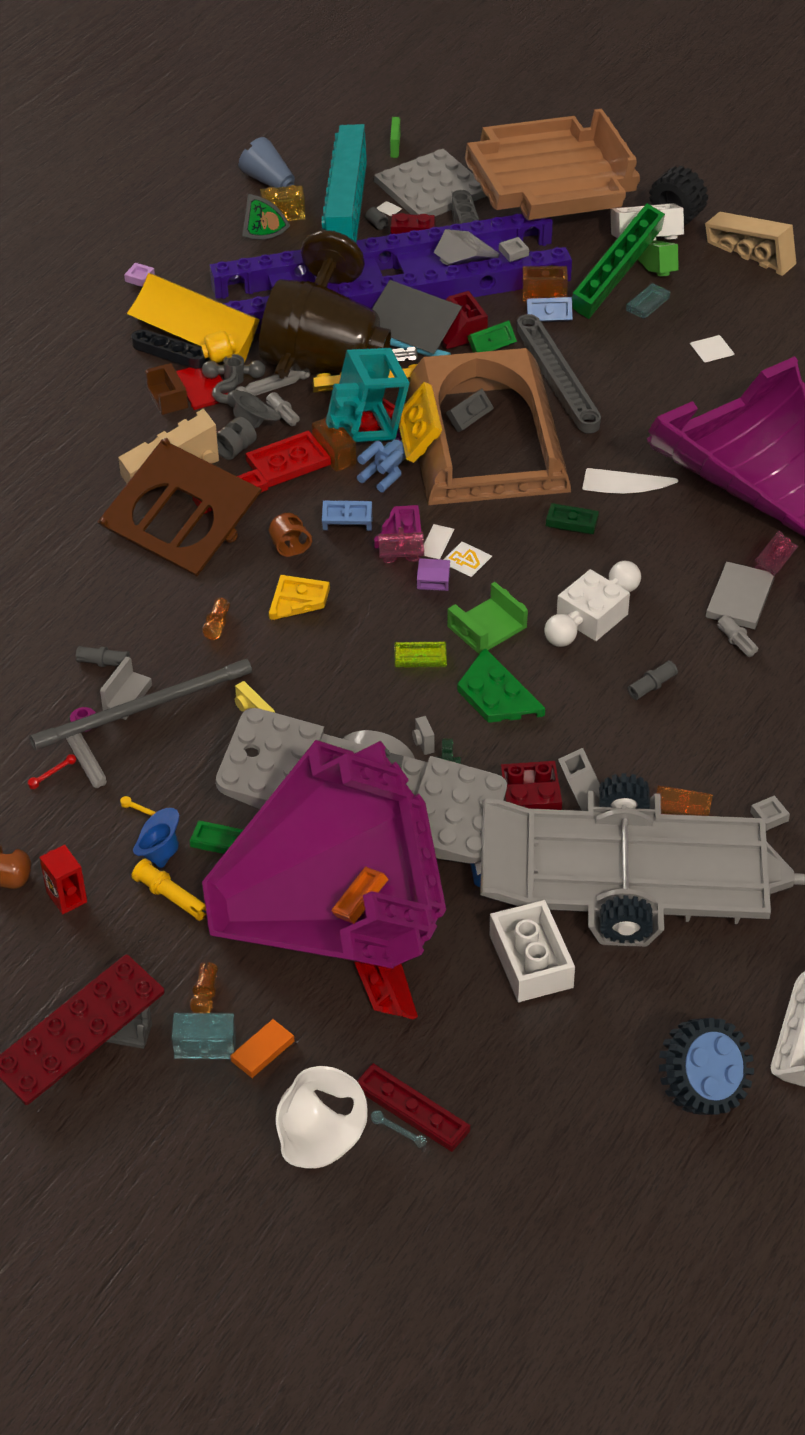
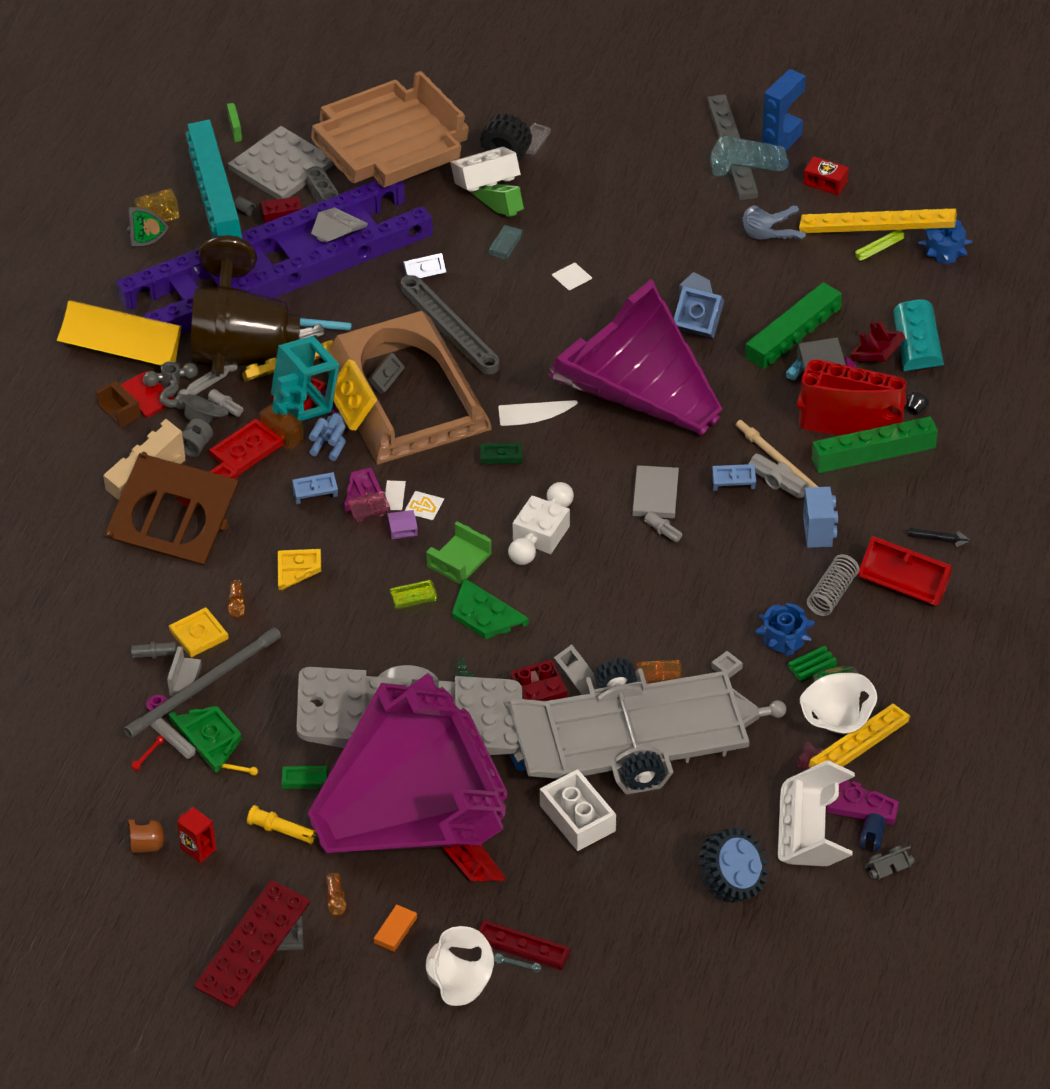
camera: 15 degrees left, 0 degrees up
(128, 765) = (209, 733): none -> green wing
(137, 274) = (52, 300): lavender plate -> none
(151, 343) = (128, 368): black beam -> none
(158, 837) = (257, 785): blue piece -> none
(161, 647) = (198, 632): none -> yellow tile
(203, 1035) = (349, 928): clear light blue hinge -> none
(218, 346) = (152, 357): yellow head -> none
(248, 698) = (291, 662): light yellow plate -> none
(265, 164) = (130, 173): sand blue cone -> none
(286, 528) = (269, 508): dark orange helmet -> none
(352, 903) = (437, 796): orange tile -> none
(389, 208) = (250, 193): white sticker -> none
(415, 316) = (313, 295): dark grey sticker -> none
(423, 735) = (439, 660): light grey plate -> none
(468, 321) = (351, 292): dark red slope -> none
(492, 338) = (383, 303): green plate -> none
(514, 249) = (381, 218): light grey plate -> none
(544, 282) = (414, 243): clear orange brick -> none
(617, 261) = (472, 212): green brick -> none
(652, 680) = (606, 577): dark grey pin -> none
(716, 203) = (539, 135): none -> clear tile
(754, 239) = (580, 167): tan wedge -> none
(775, 554) = (675, 451): clear pink hips -> none

